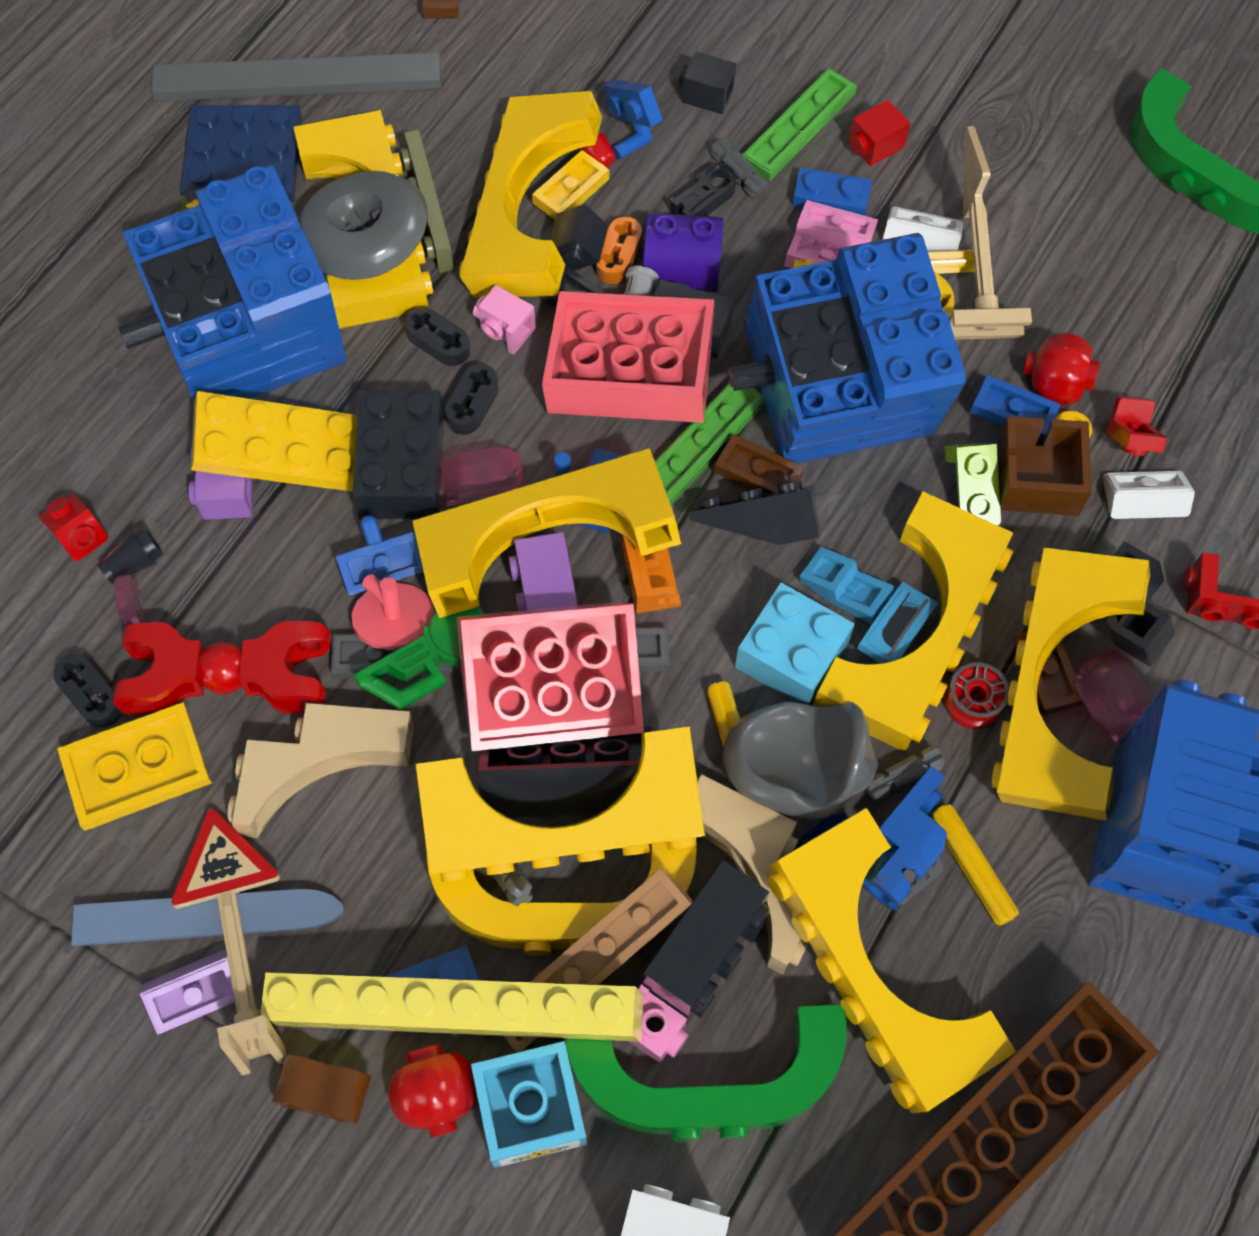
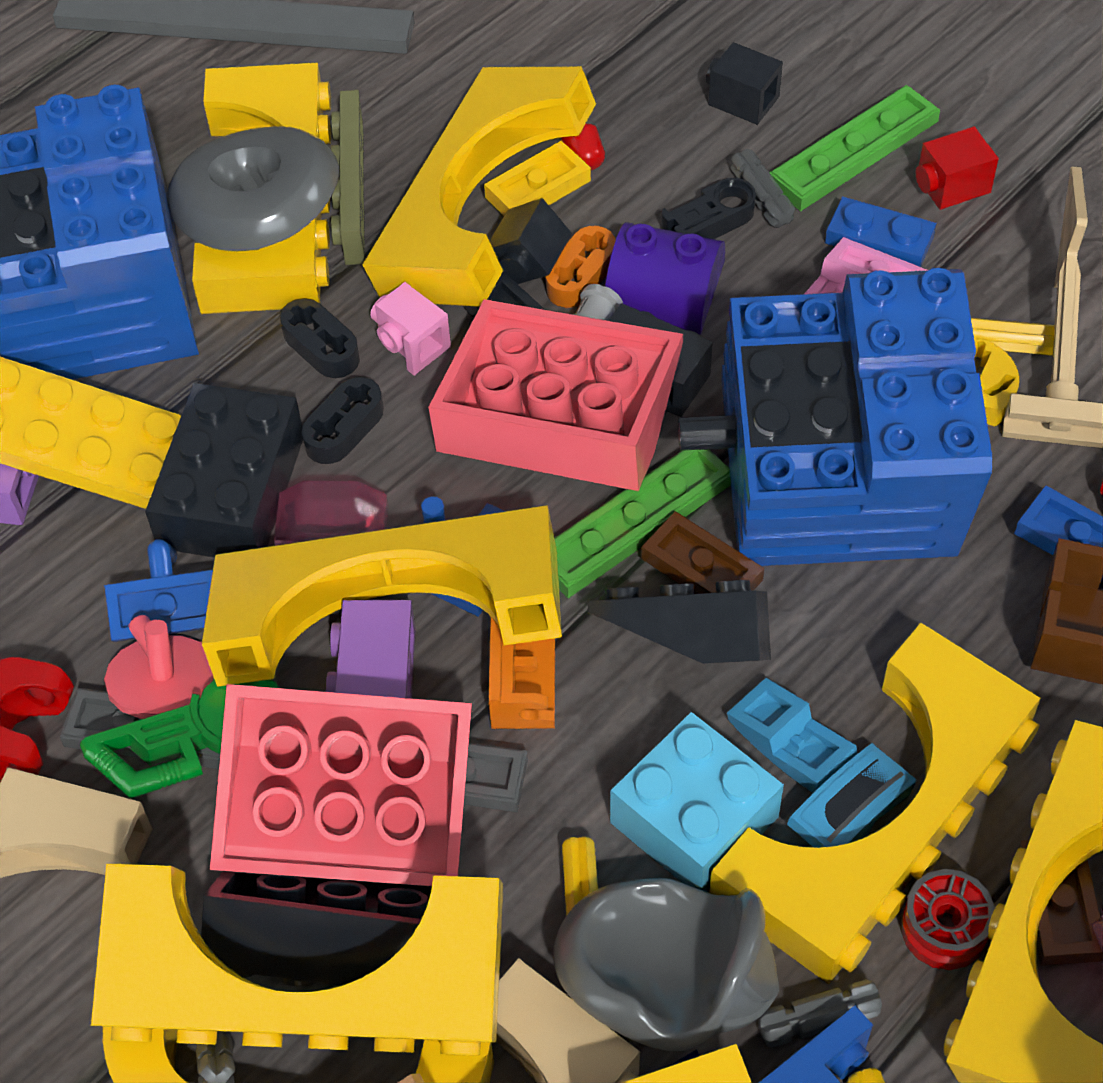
camera: 15 degrees right, 10 degrees down
(234, 138) = (169, 82): dark blue plate -> none
(636, 105) = (638, 94): blue plate -> none
(938, 231) = (1002, 296): white slope -> none
(977, 479) = (1005, 622): bracket -> none

